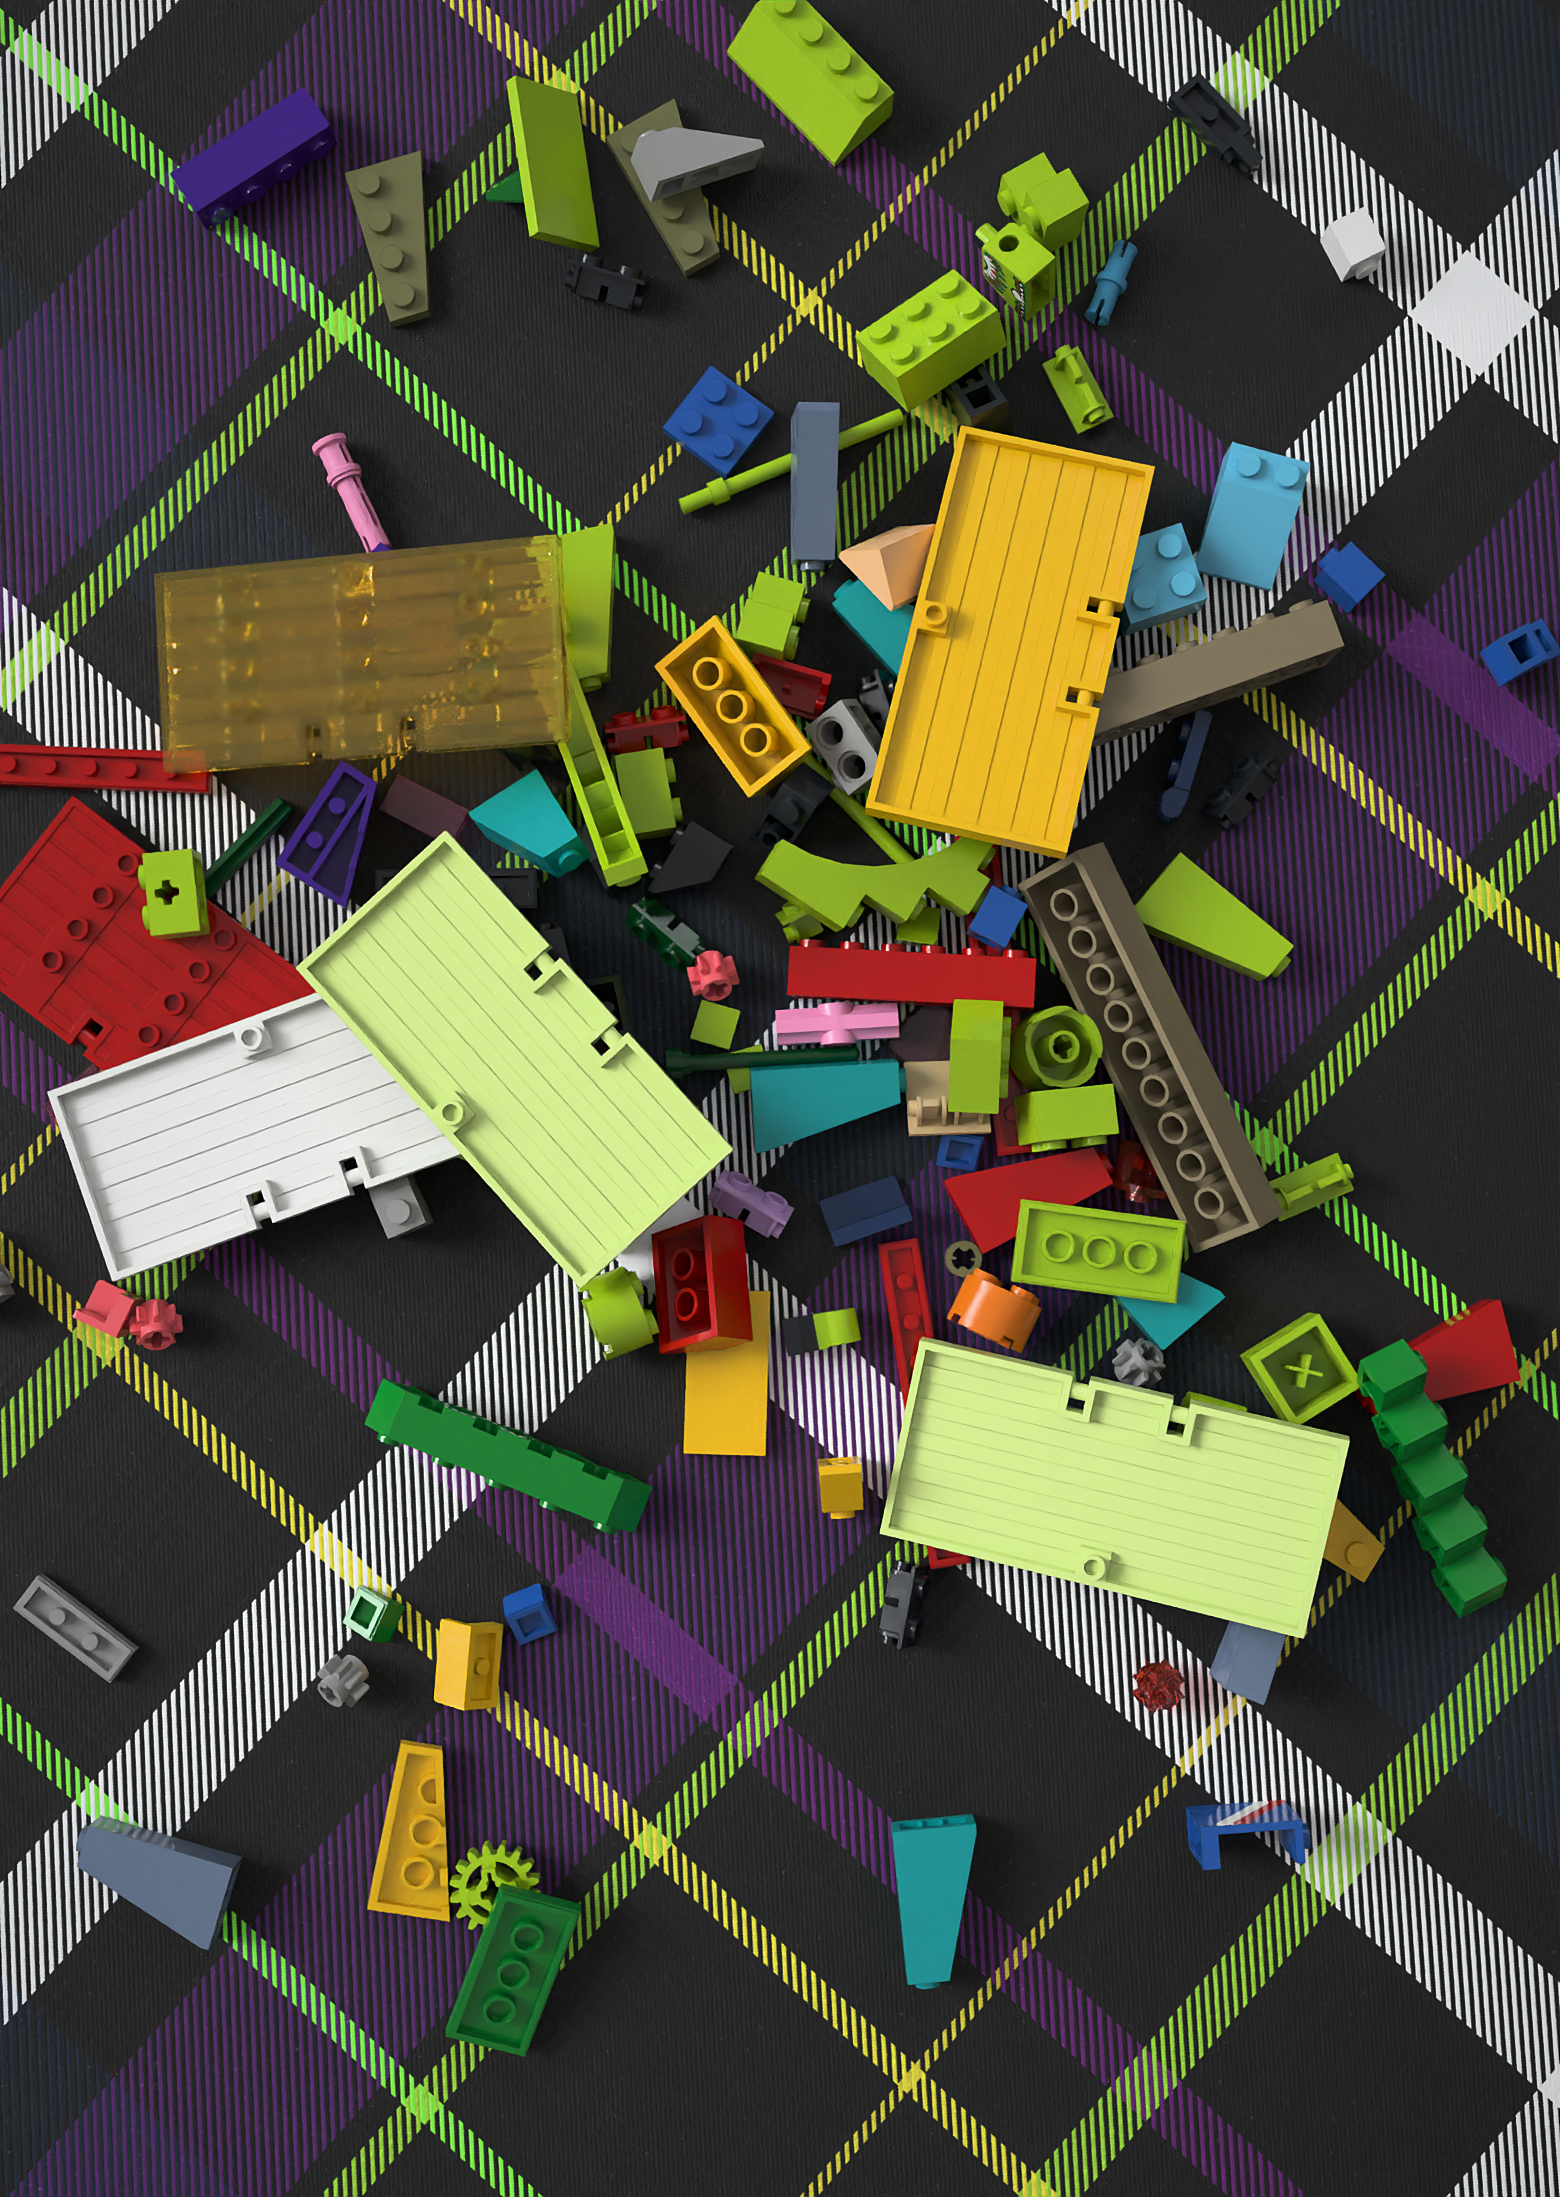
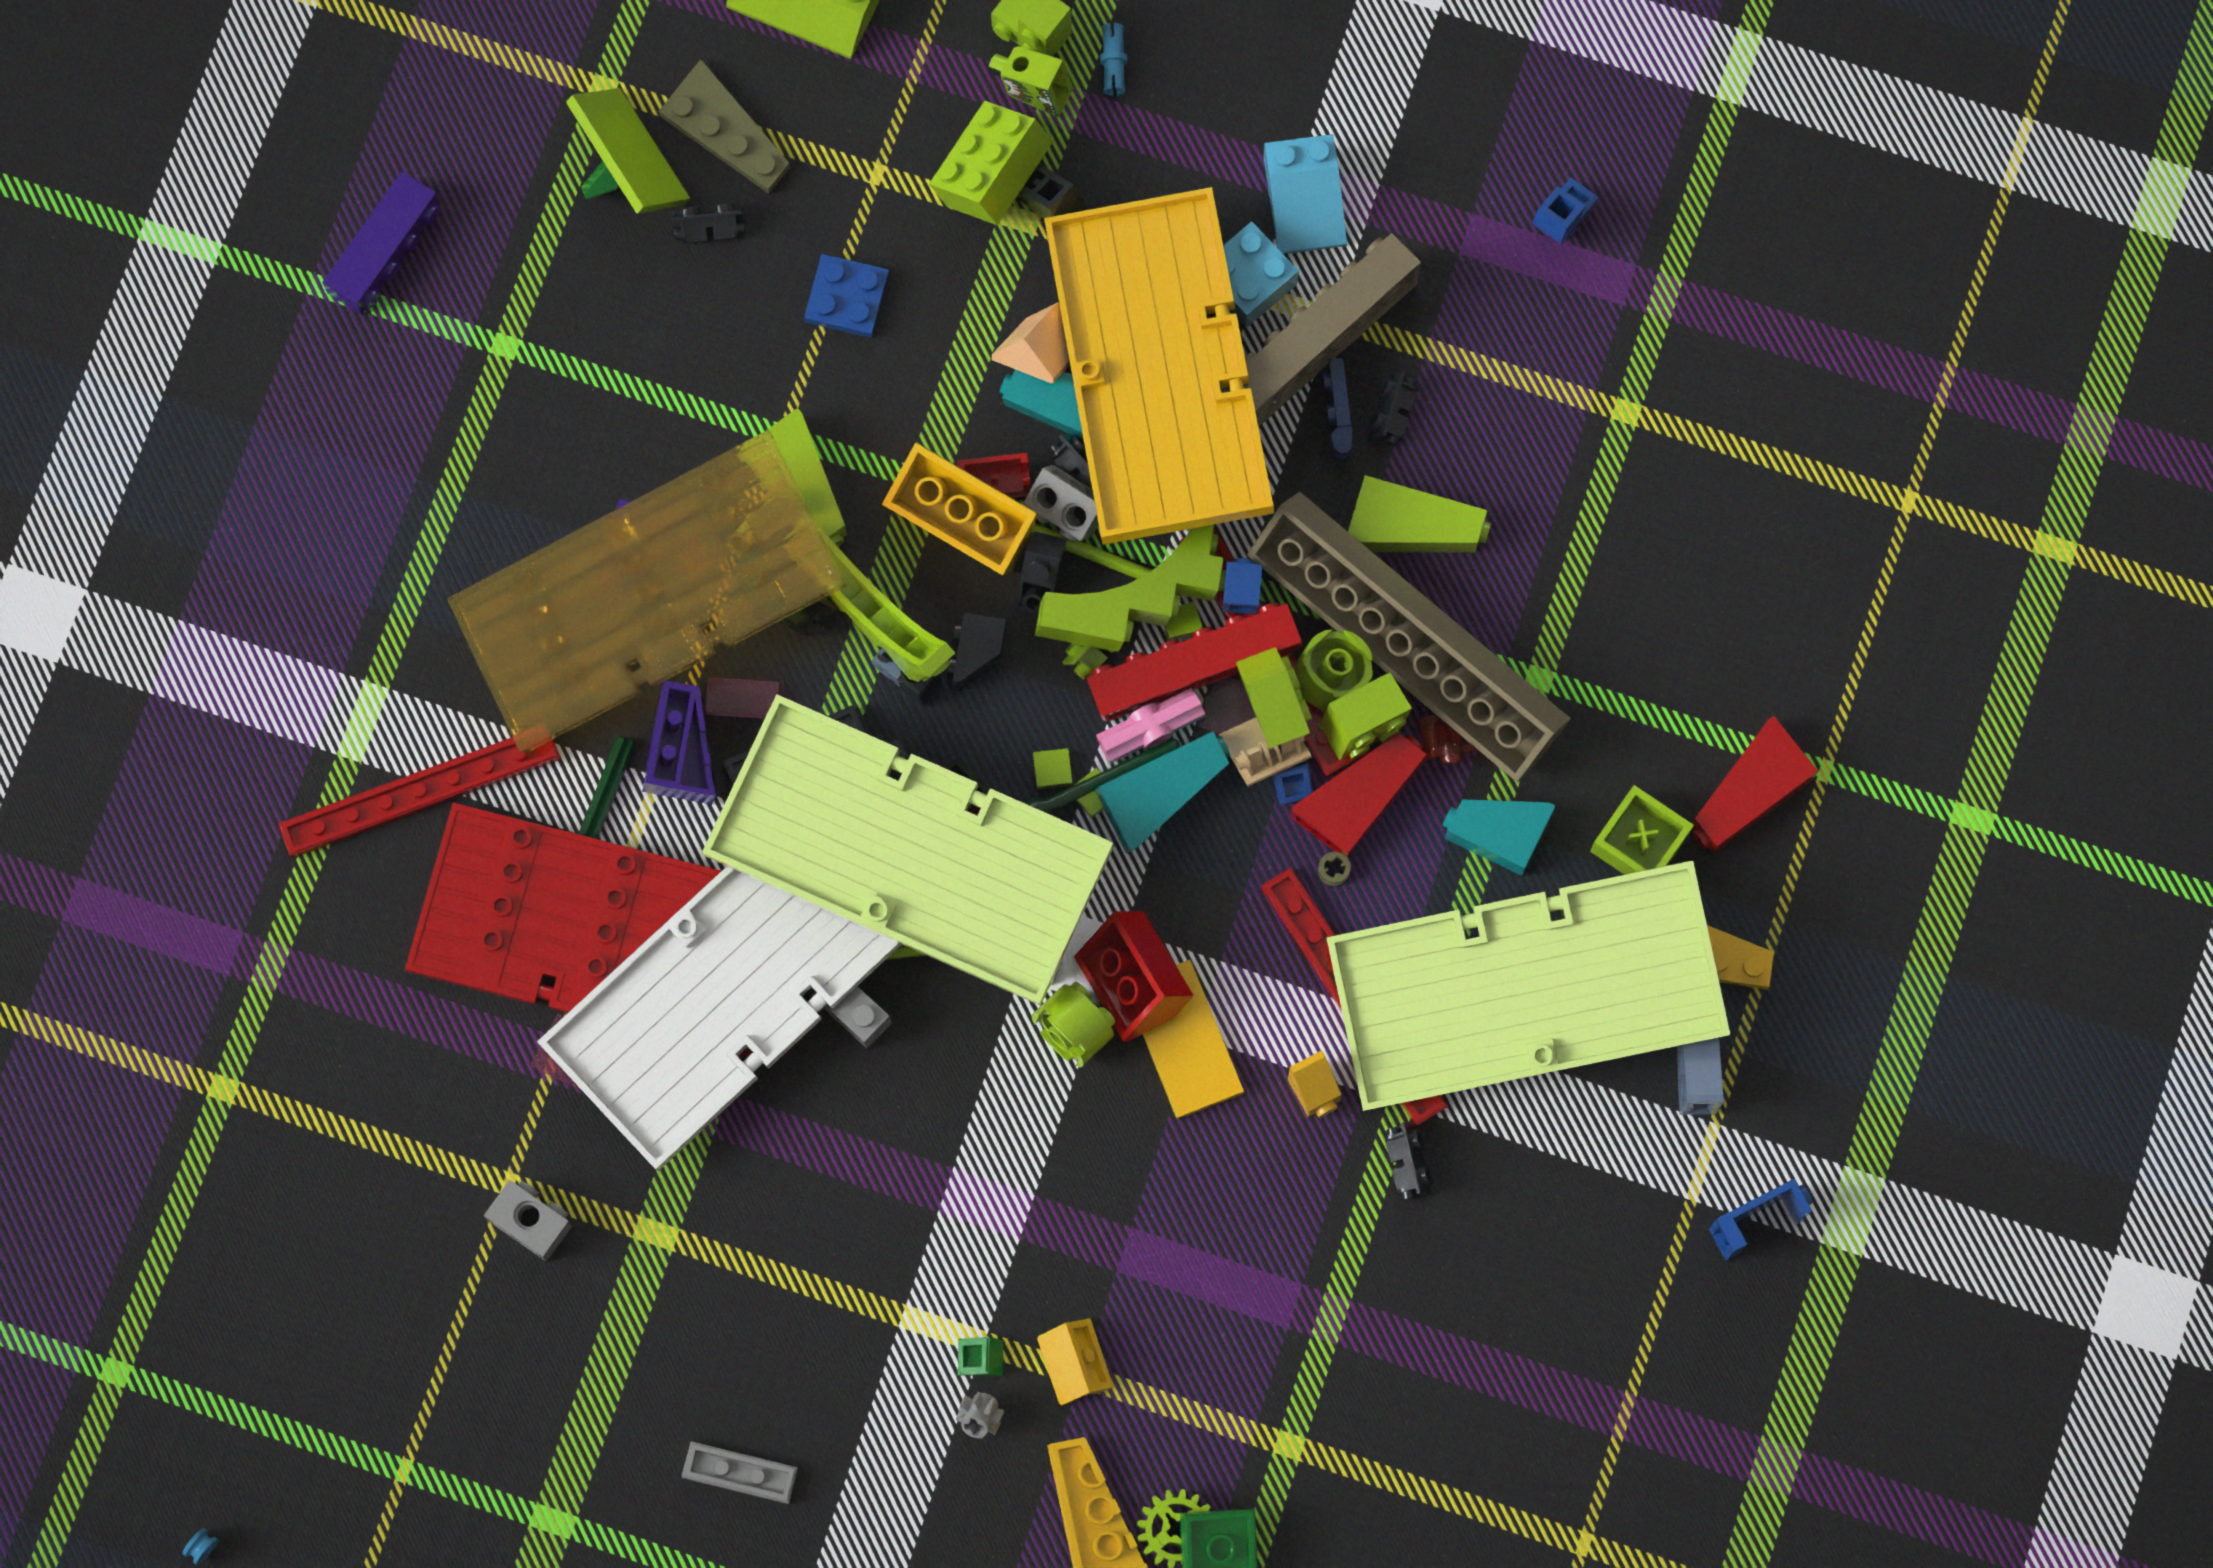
camera: 20 degrees left, 10 degrees down
(109, 1309) = (658, 1201): coral panel -> none
(155, 1324) = (702, 1195): coral gear -> none
(188, 911) = (568, 822): lime brick -> none
(345, 477) = (563, 462): bright pink pin -> none
(392, 219) = (515, 249): olive wing -> none
(507, 1457) = (1035, 1177): green brick -> none
(529, 1614) = (1108, 1302): blue slope -> none
(532, 826) = (838, 670): teal slope -> none
(631, 730) = (905, 550): red hinge -> none
(647, 794) = (916, 598): lime brick -> none
(650, 923) = (965, 711): dark green hinge -> none
(689, 158) = (735, 102): light grey slope -> none
(713, 975) = (1034, 728): coral gear -> none
(720, 490) = (872, 348): lime bar -> none
(767, 1209) = (1157, 896): lavender hinge -> none
(772, 617) = (958, 427): lime brick -> none
(814, 484) = (947, 312): sand blue slope -> none
(820, 1330) = (1243, 973): leg -> none
(865, 1210) = (1239, 865): dark blue panel -> none
(932, 1882) = (1530, 1378): teal slope -> none
(995, 1311) = (1377, 893): orange brick -> none
(1077, 389) = (1123, 152): lime hinge -> none
(1098, 1251) = (1438, 811): lime tile -> none
(1138, 1363) = (1510, 885): light grey gear -> none
(1158, 1686) = (1641, 1137): clear red gear -> none
(1312, 1185) = (1588, 693): lime hinge -> none
(1347, 576) = (1402, 208): blue brick -> none
(1431, 1477) = (1780, 875): green brick -> none

